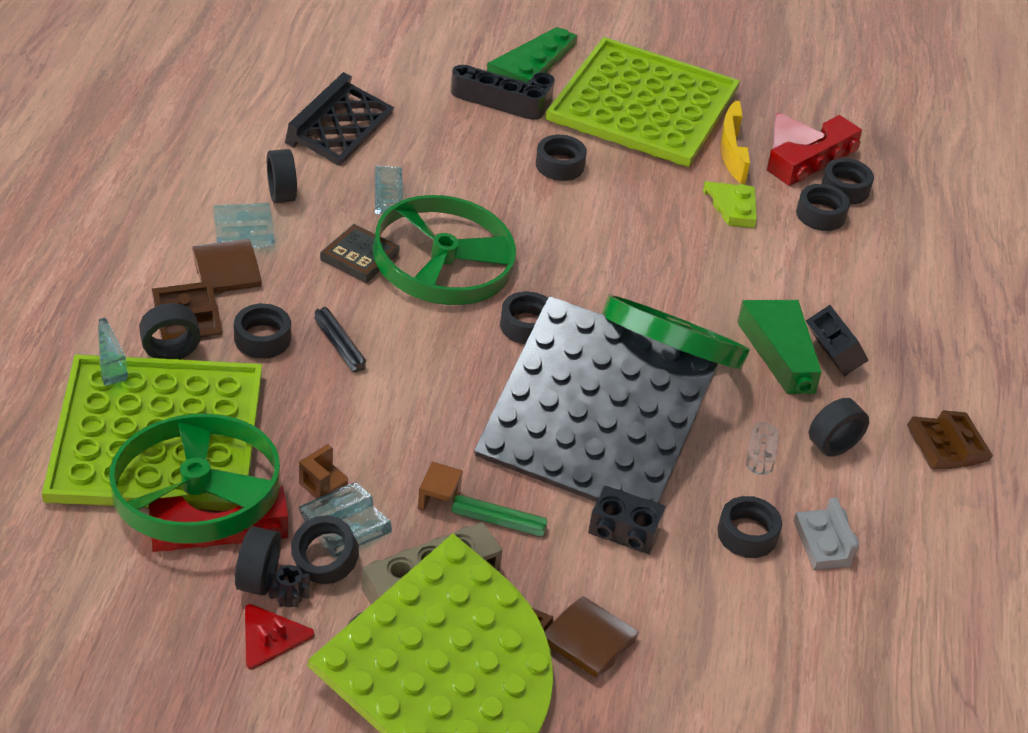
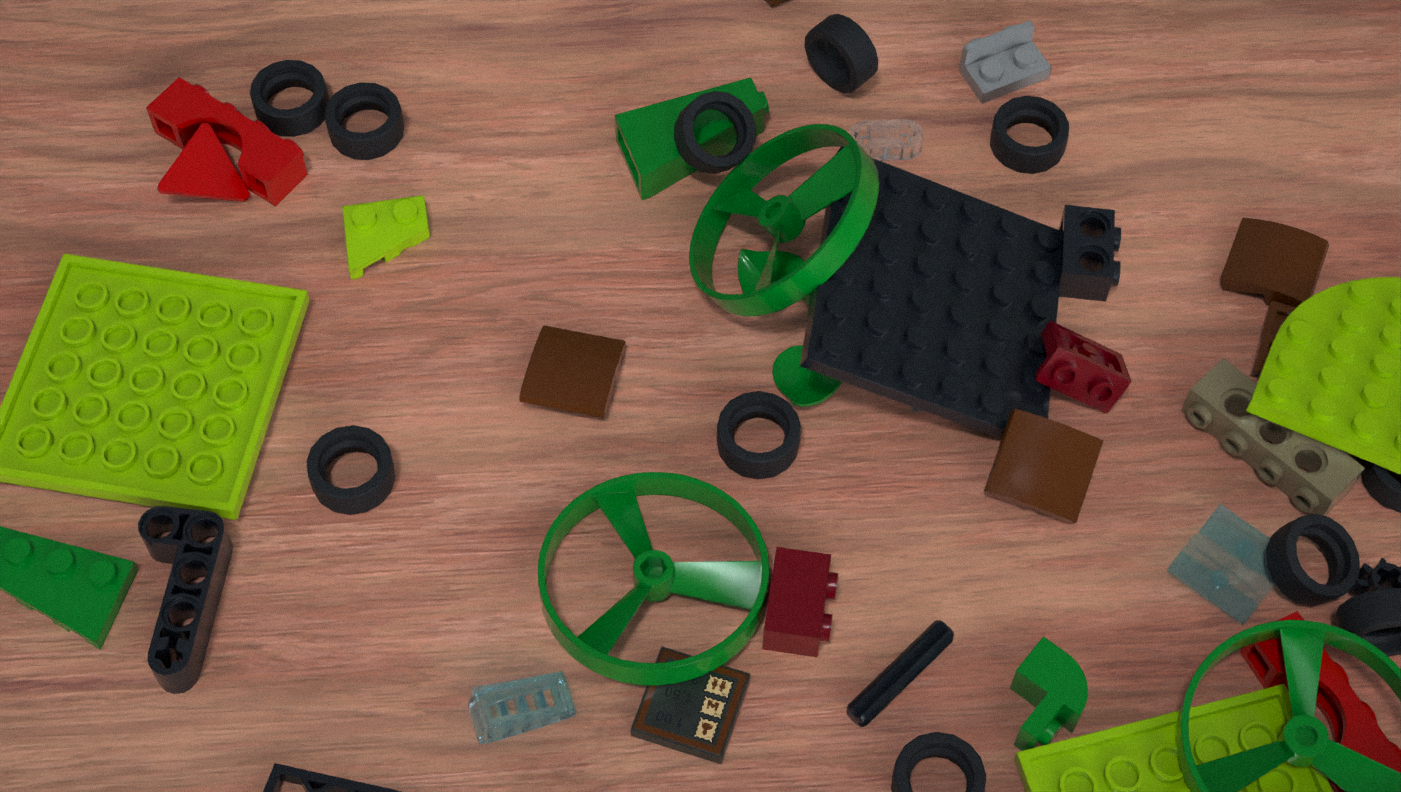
camera: 100 degrees left, 15 degrees up
(295, 395) = (1057, 690): none -> green brick
(319, 474) = (1177, 613): dark orange panel -> none
(403, 302) = (797, 601): none -> dark red brick
(439, 482) = (1139, 462): dark orange panel -> none
(452, 436) = (1043, 466): none -> reddish brown slope
(499, 515) = (1138, 395): green axle -> none
(526, 477) = (1082, 368): none -> dark red bracket
(603, 253) = (572, 371): none -> reddish brown slope
(734, 157) = (238, 250): yellow slope -> none
(759, 314) = (737, 114): none -> black tyre
(837, 340) = (673, 70): black brick -> none

